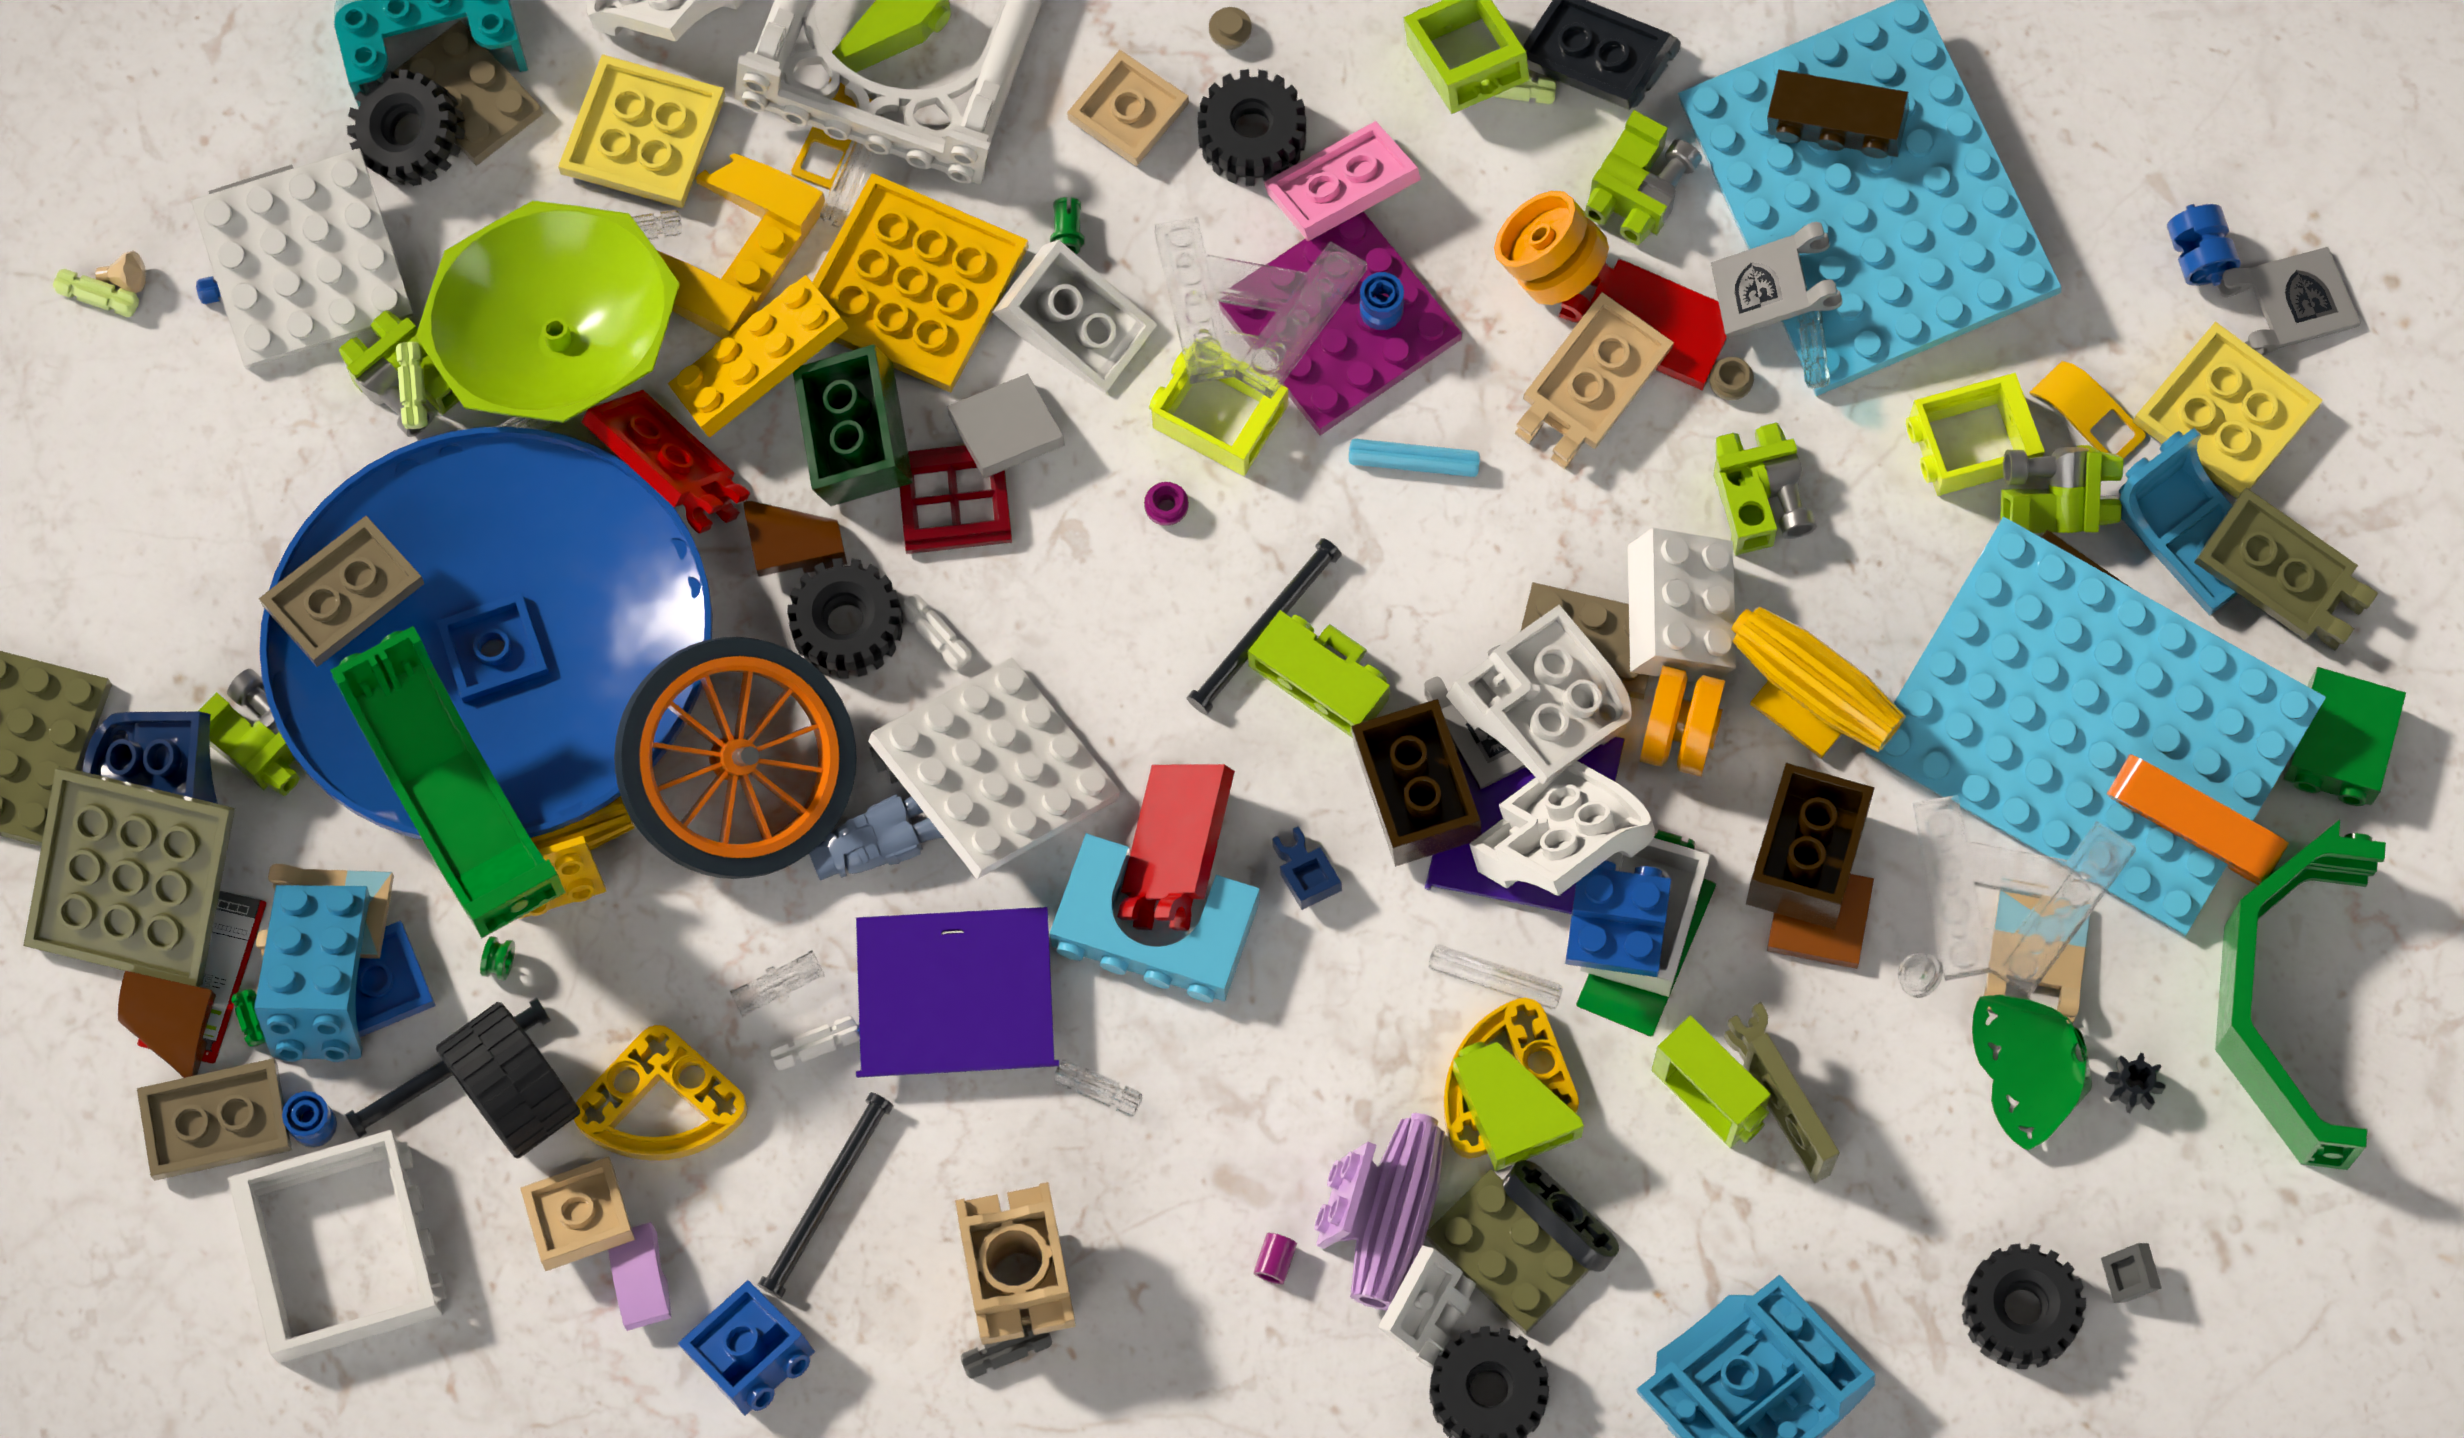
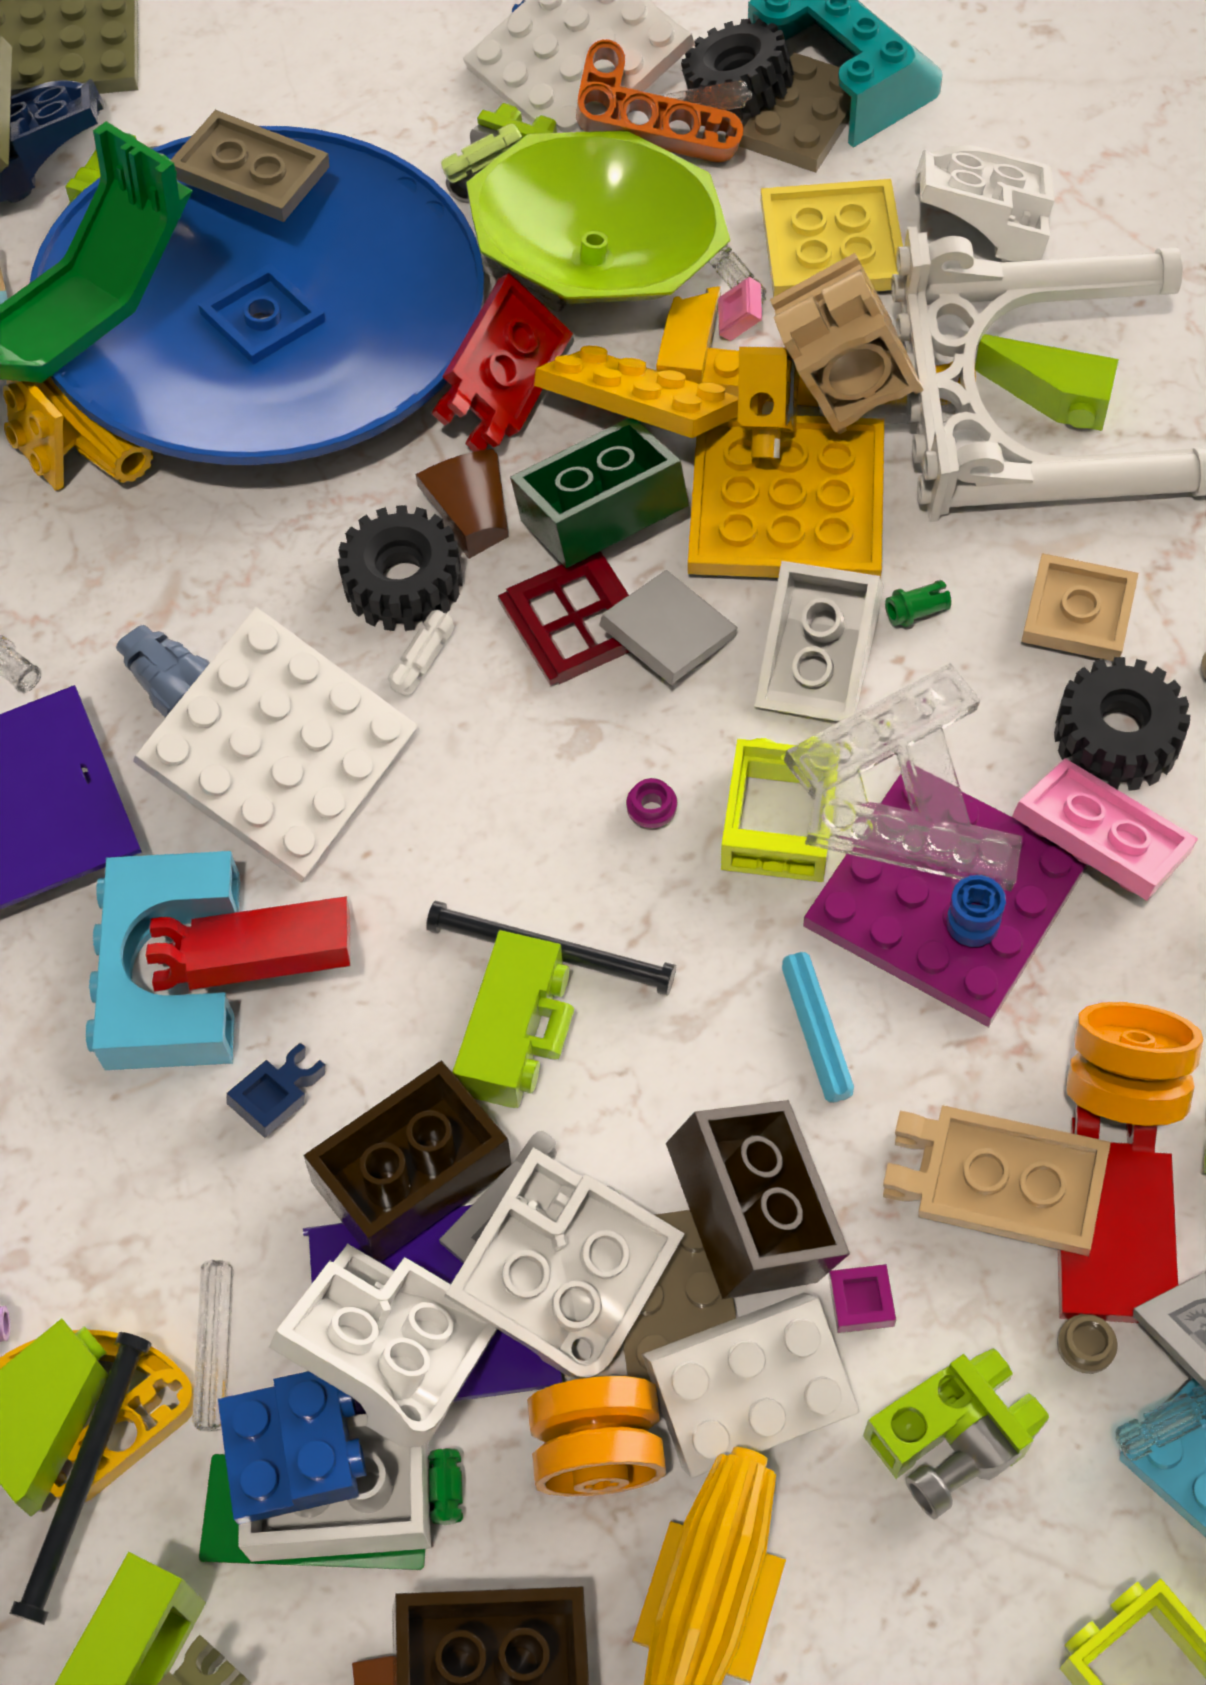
camera: 70 degrees right, 10 degrees down
(435, 174) = (719, 96): none -> clear axle
(437, 217) = (659, 110): none -> orange beam
(690, 239) = (739, 308): none -> bright pink tile
(735, 757) = (195, 512): wheel -> none
(820, 165) = (844, 343): none -> tan piece
(830, 249) = (764, 376): none -> yellow torso
(1548, 547) = (756, 1198): none -> dark brown brick
(1569, 1090) = (80, 1479): none -> black bar
(1641, 510) = (862, 1298): none -> magenta plate

